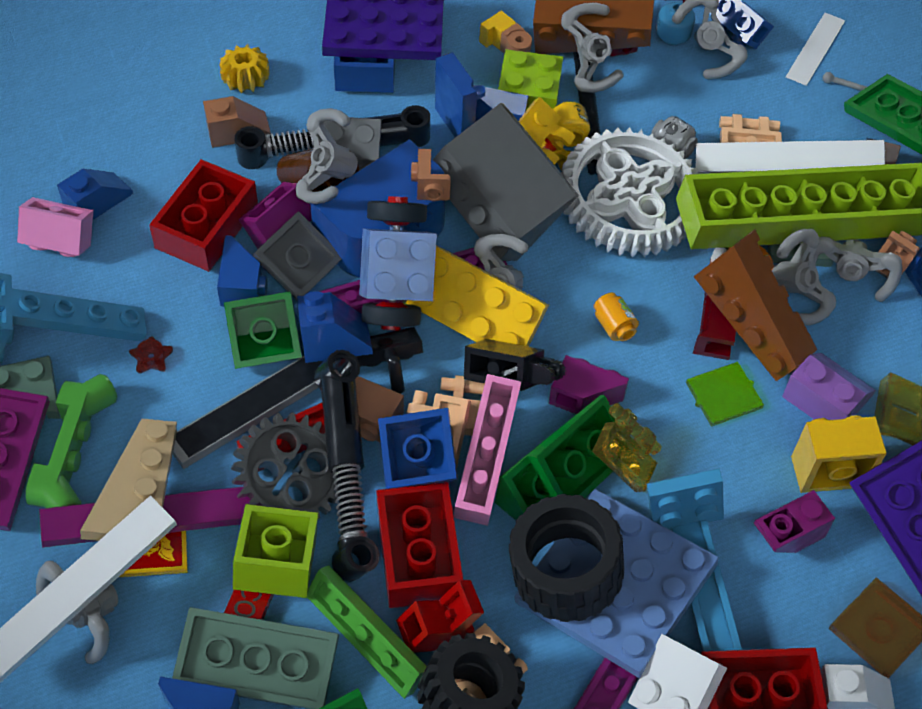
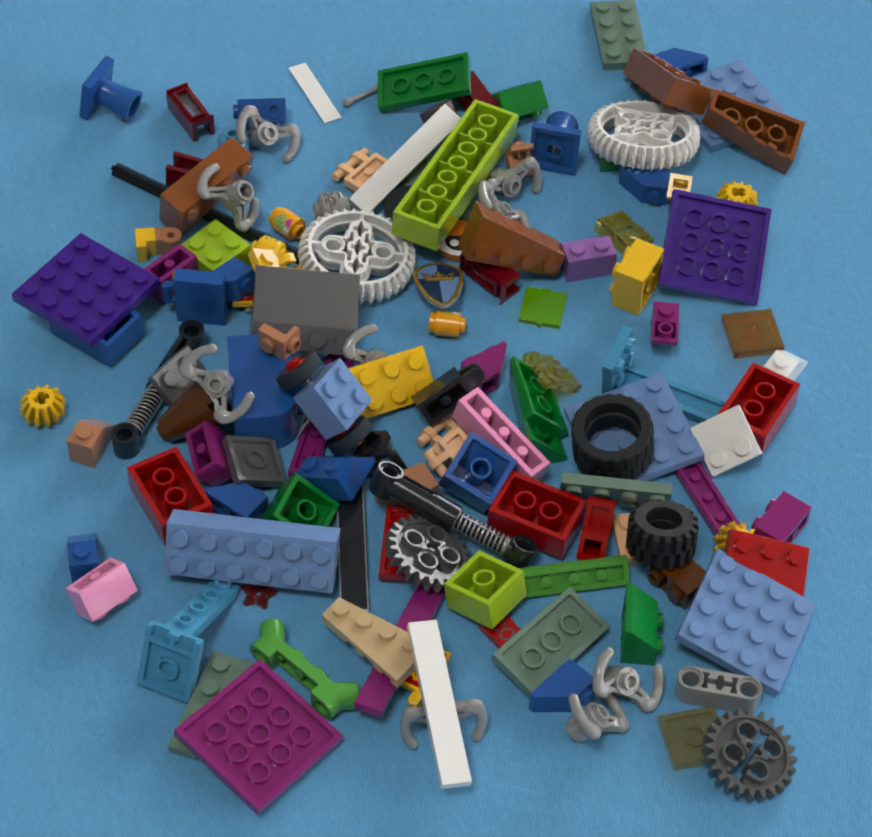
camera: 55 degrees left, 5 degrees down
(175, 316) = (252, 551): none -> medium blue brick
(480, 60) = (163, 267): none -> magenta brick
(510, 614) = (624, 491): none -> sand green plate
(622, 114) = (287, 223): none -> light orange brick
(659, 280) = (439, 283): none -> shield

